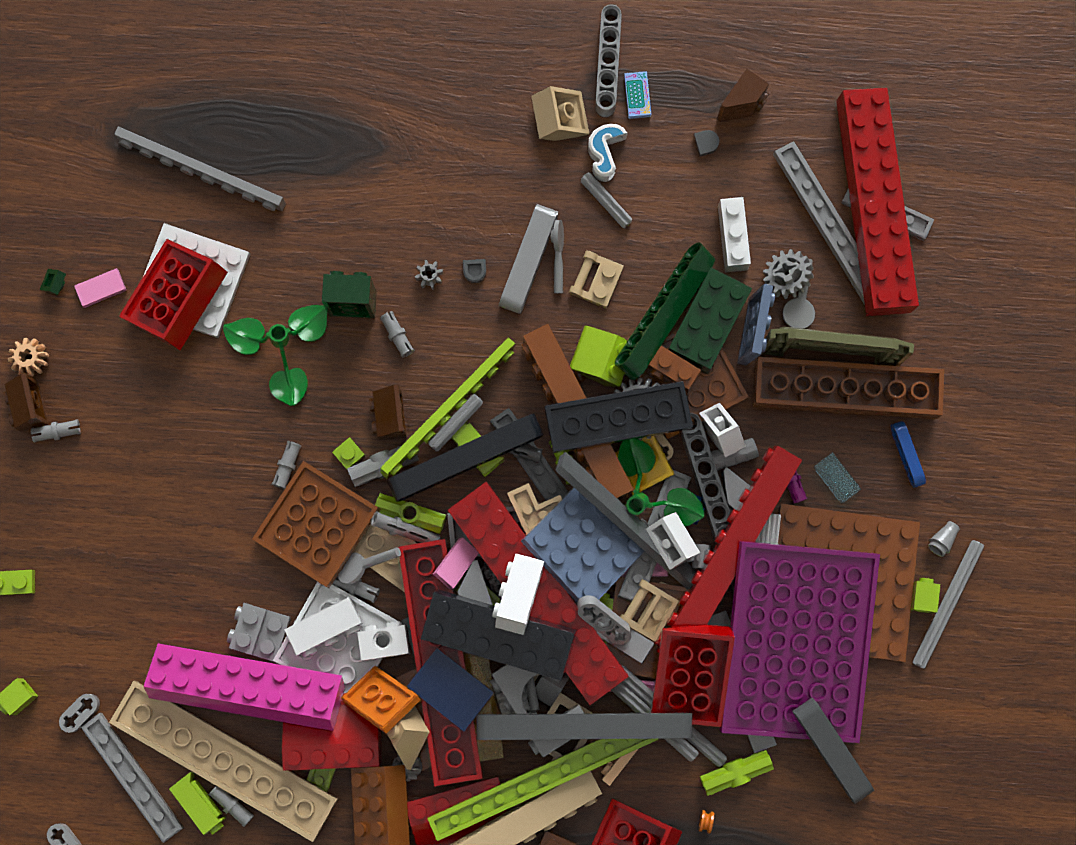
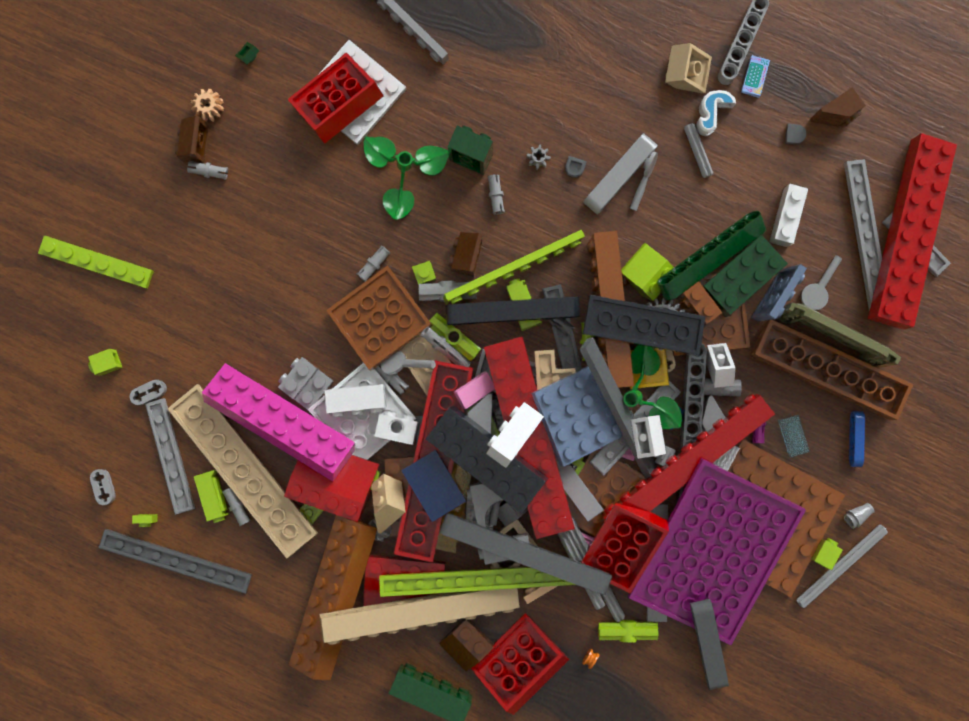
camera: 25 degrees right, 5 degrees up
(100, 288) = (281, 72): bright pink tile -> none
(380, 699) = (378, 472): orange tile -> none
(455, 422) = (515, 280): light grey axle -> none
(603, 282) = (671, 214): tan plate -> none
(606, 629) = (572, 485): light grey beam -> none
(654, 615) = (612, 487): tan plate -> none
(791, 275) = (829, 262): light grey gear -> none

